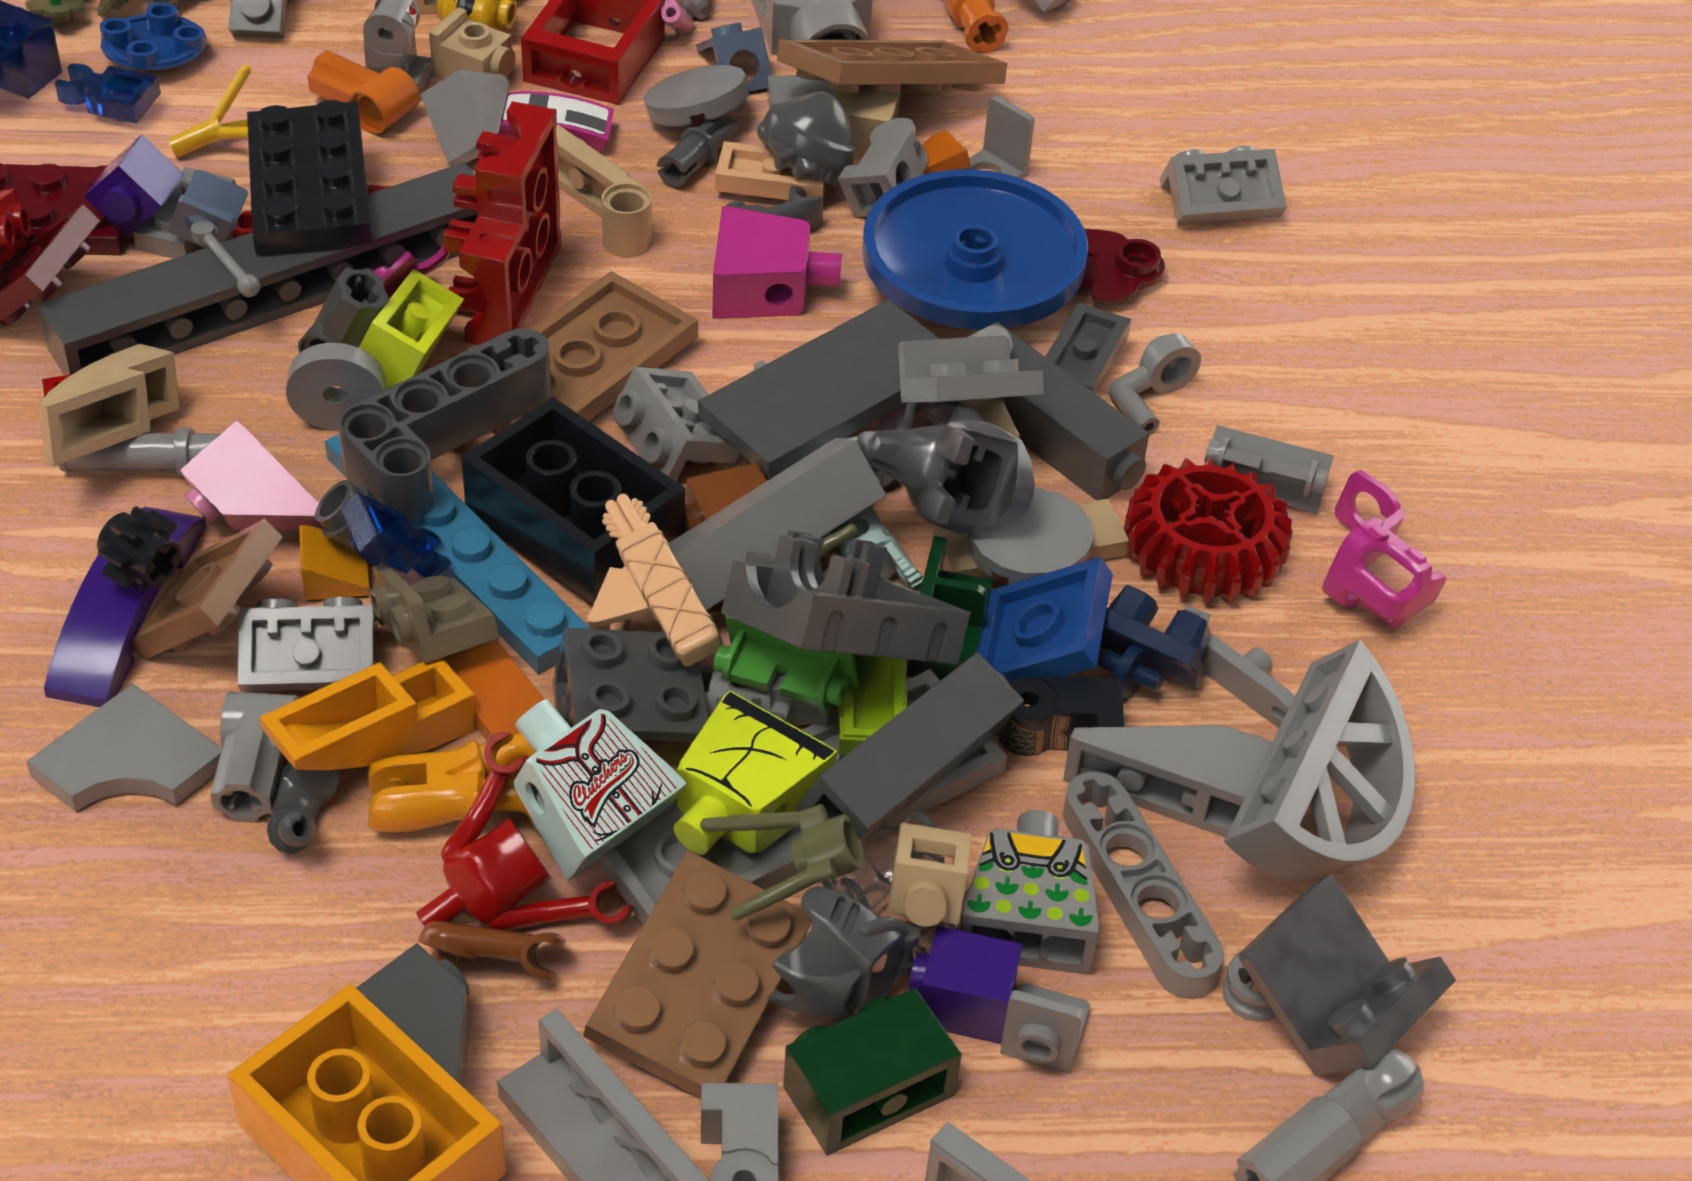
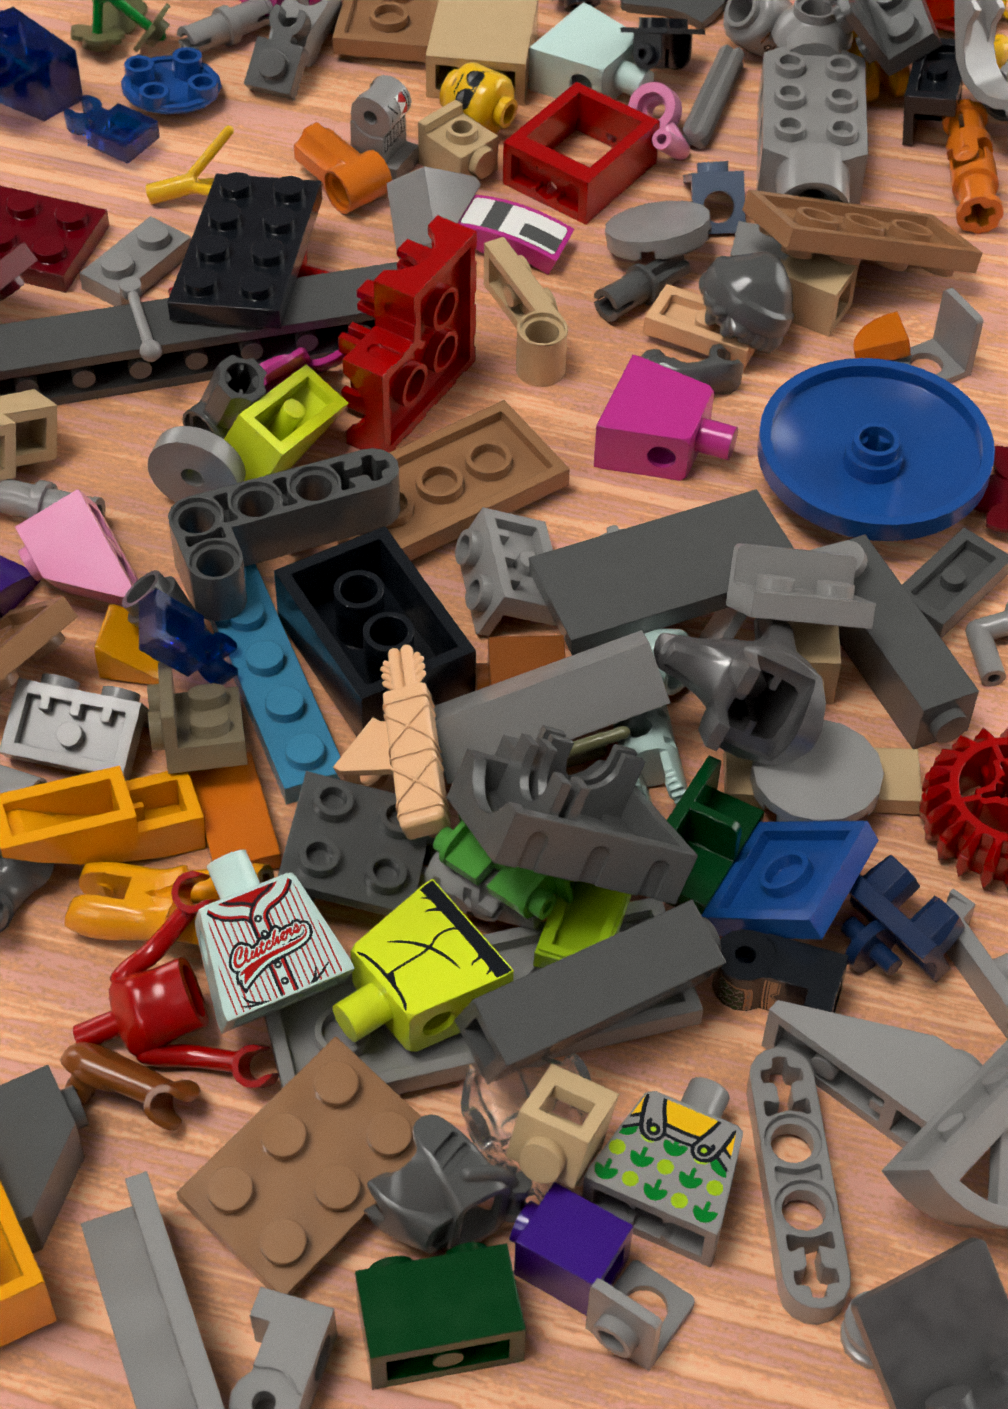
camera: 20 degrees right, 5 degrees up
(134, 185) = (90, 228): dark purple brick -> none
(208, 200) = (152, 259): sand blue bracket -> none
(820, 853) = (450, 1080): olive plant -> none
(889, 161) = (826, 335): light grey leg -> none

